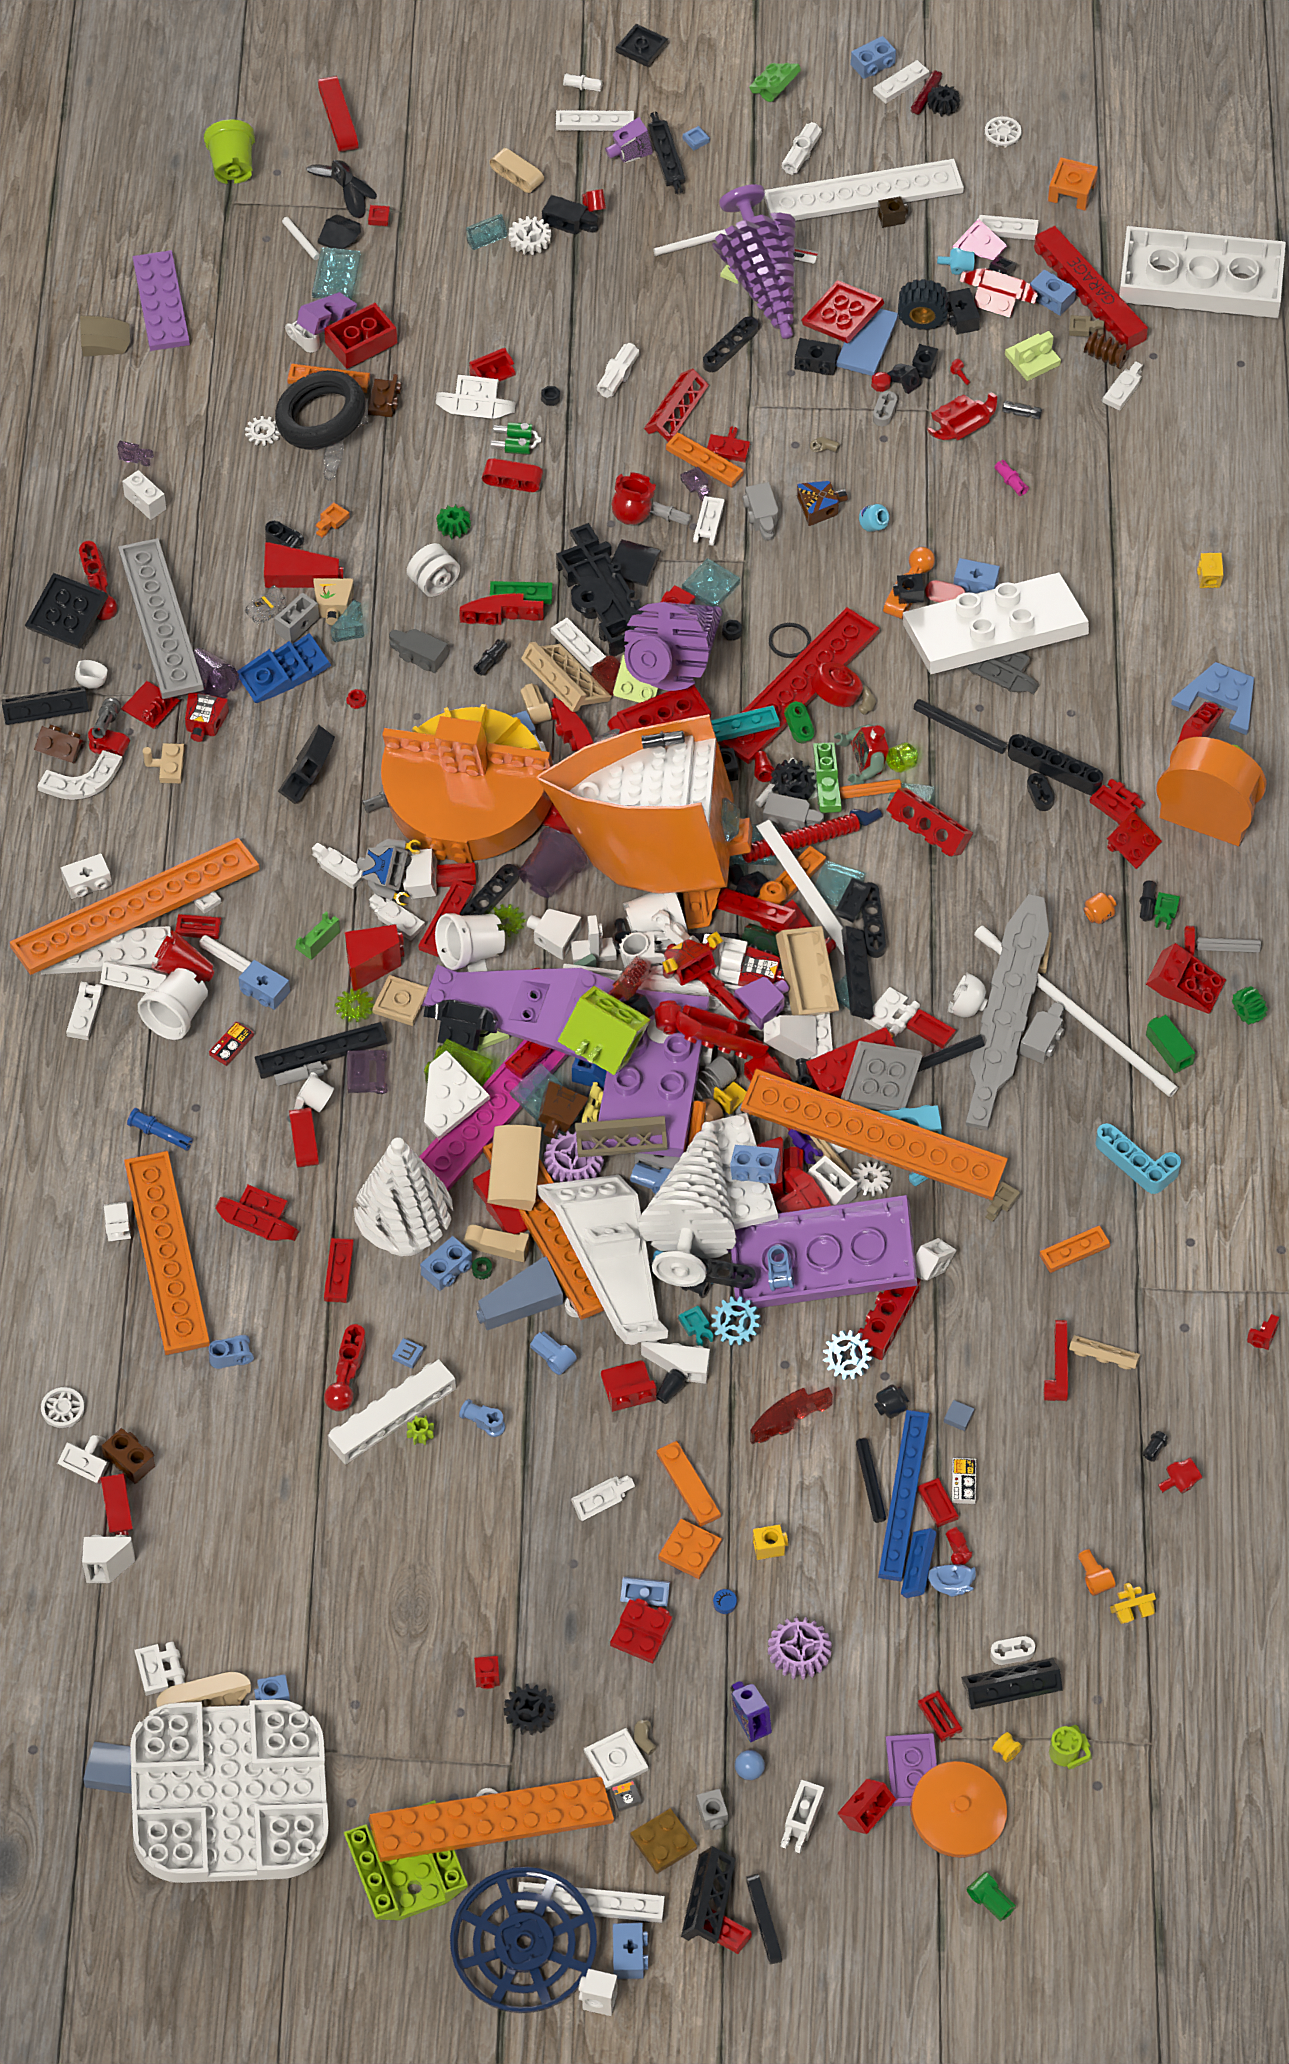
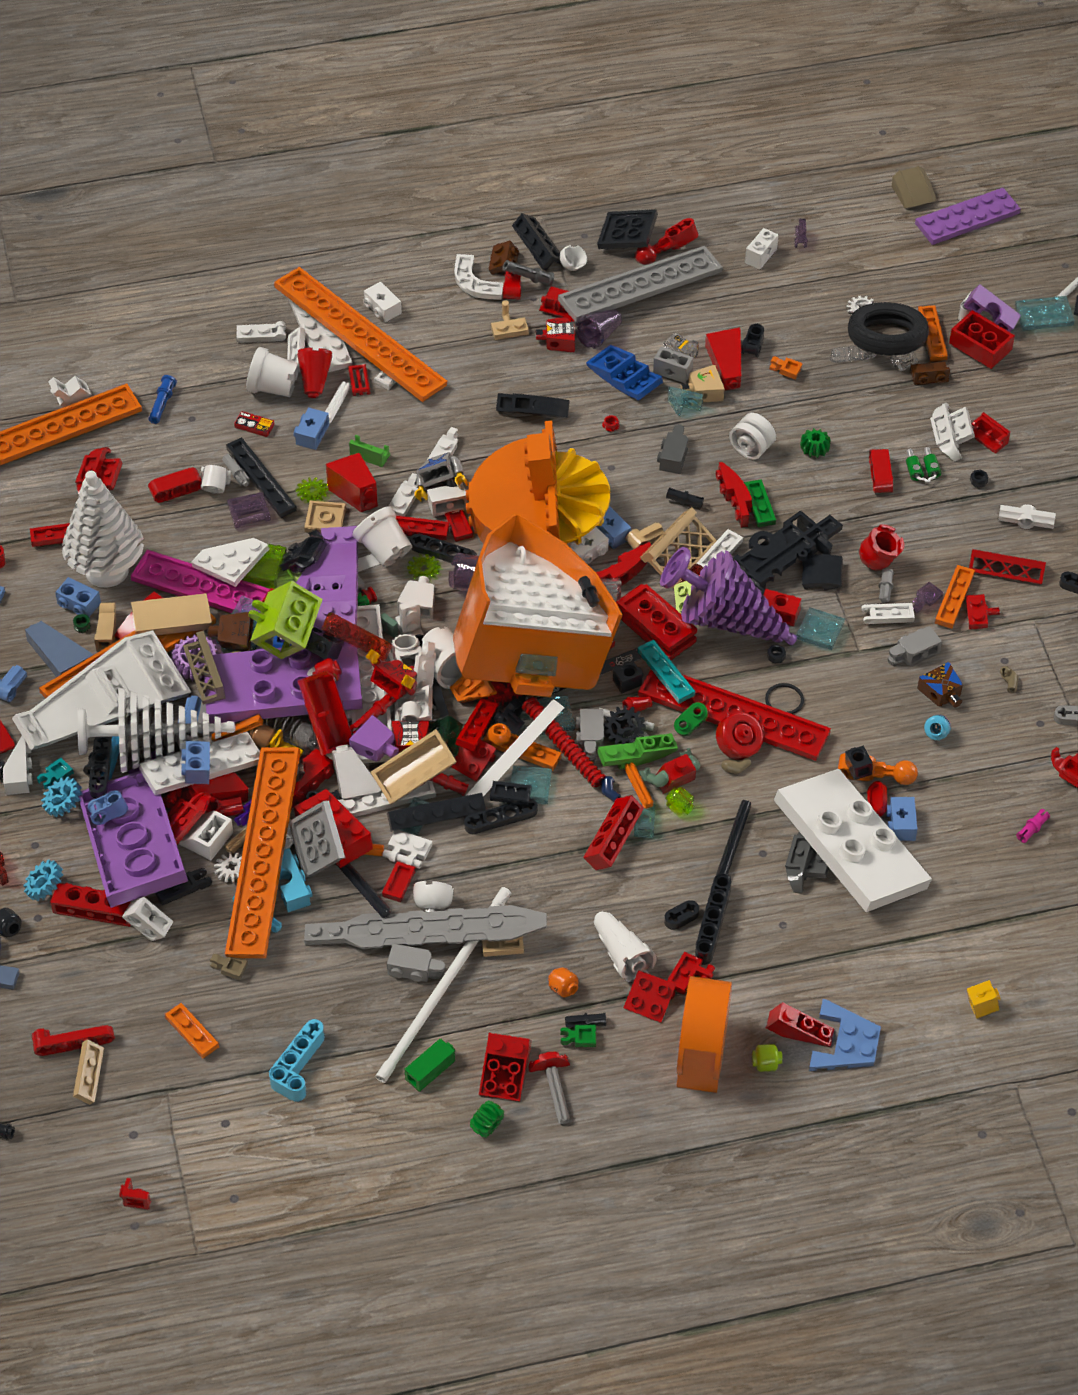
camera: 75 degrees right, 5 degrees down
(1073, 845) = (624, 947): none -> white cone

